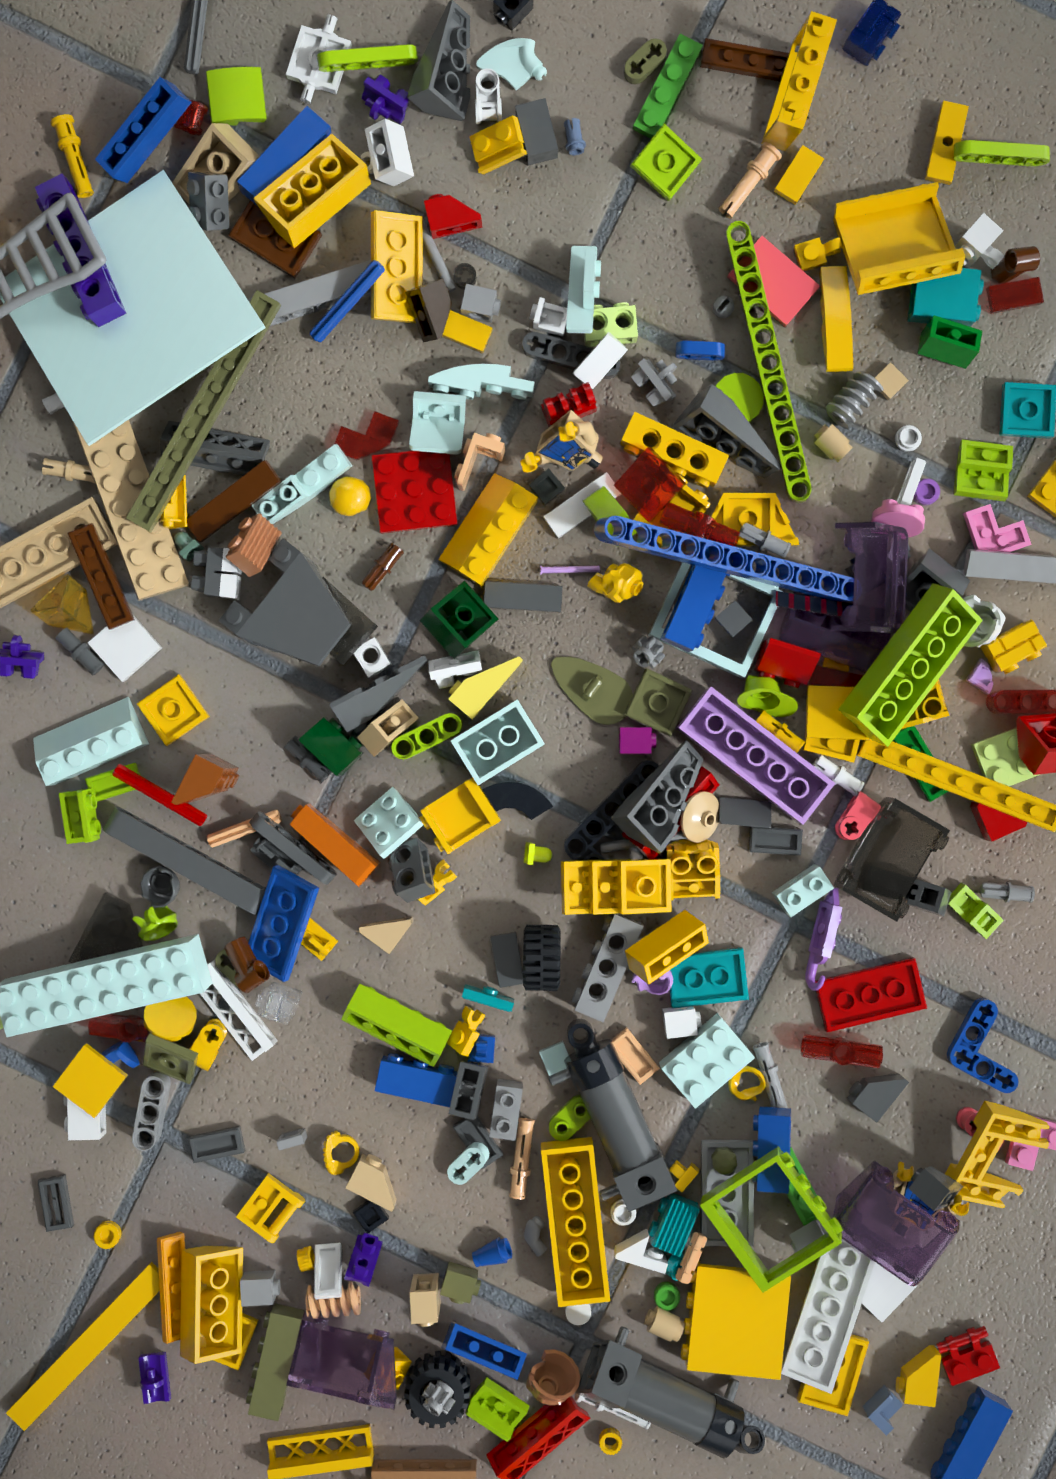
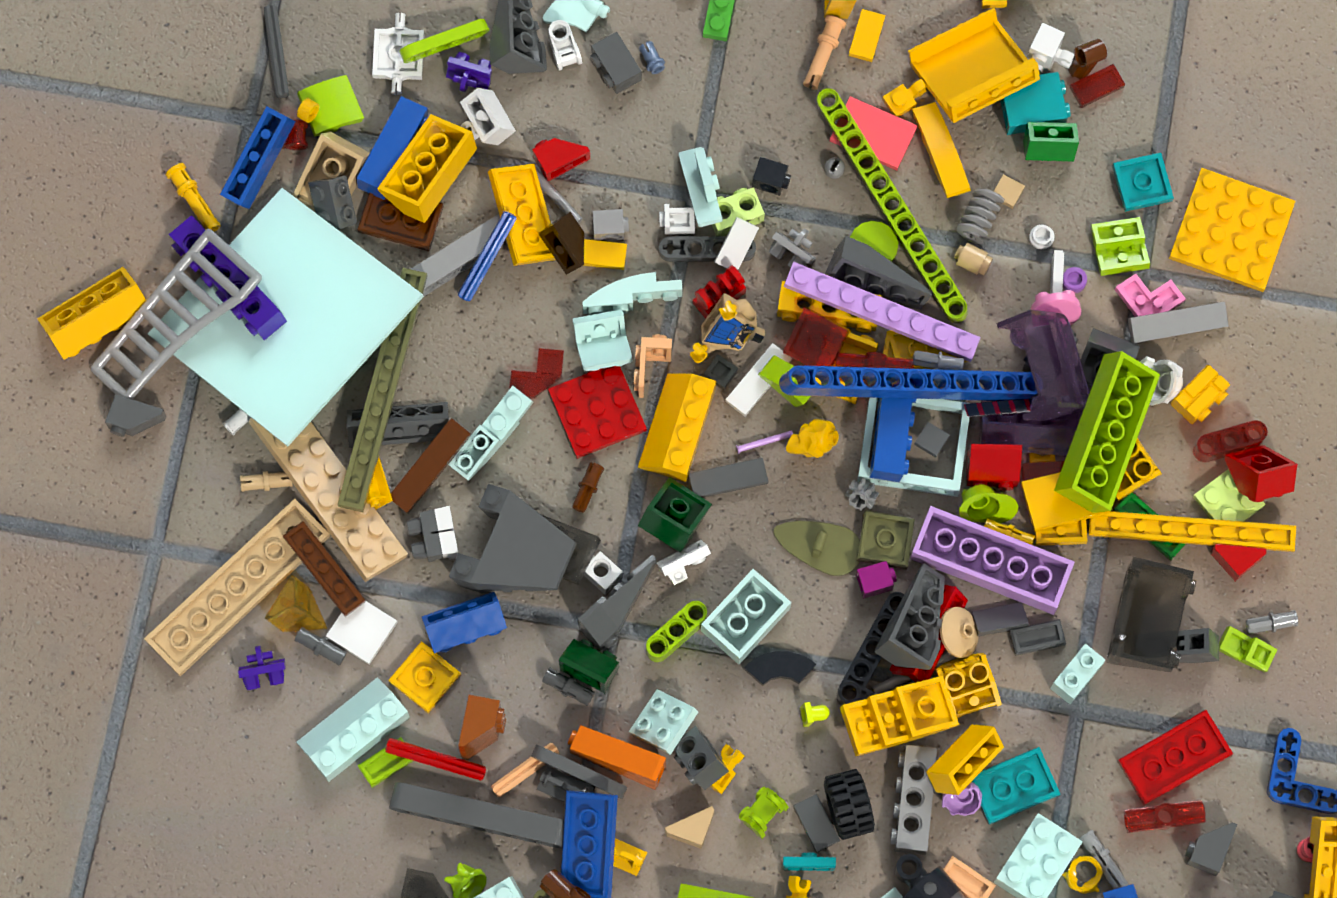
camera: 15 degrees left, 15 degrees down
(80, 816) = (363, 801): lime bracket -> none
(160, 886) = (459, 845): dark grey hair -> none
(187, 545) = (396, 519): sand green piece -> none
(208, 94) = (308, 110): none -> yellow axle
(222, 669) = (464, 622): none -> blue brick
(253, 544) = (462, 497): nougat brick -> none
(349, 496) = (537, 431): yellow hair -> none
(387, 727) = (635, 633): tan slope -> none
(459, 271) = (581, 201): clear smoke bush -> none
(459, 816) = (730, 697): yellow panel -> none
(459, 935) = (762, 811): none -> lime piece
(477, 690) = (713, 572): light yellow slope -> none
(498, 144) = (585, 83): yellow plate -> none
(657, 298) = (771, 176): none -> black brick
(666, 162) = (742, 57): lime tile -> none
(681, 1022) = (1001, 832): white brick -> none
(700, 350) = (825, 211): blue beam -> none
(723, 472) = (881, 312): none -> lavender plate
(823, 937) = (1112, 713): medium lavender plate -> none
(838, 775) = (1081, 559): white pin -> none
(860, 813) = (1106, 589): coral piece -> none
(981, 676) = (1181, 432): lavender tile -> none

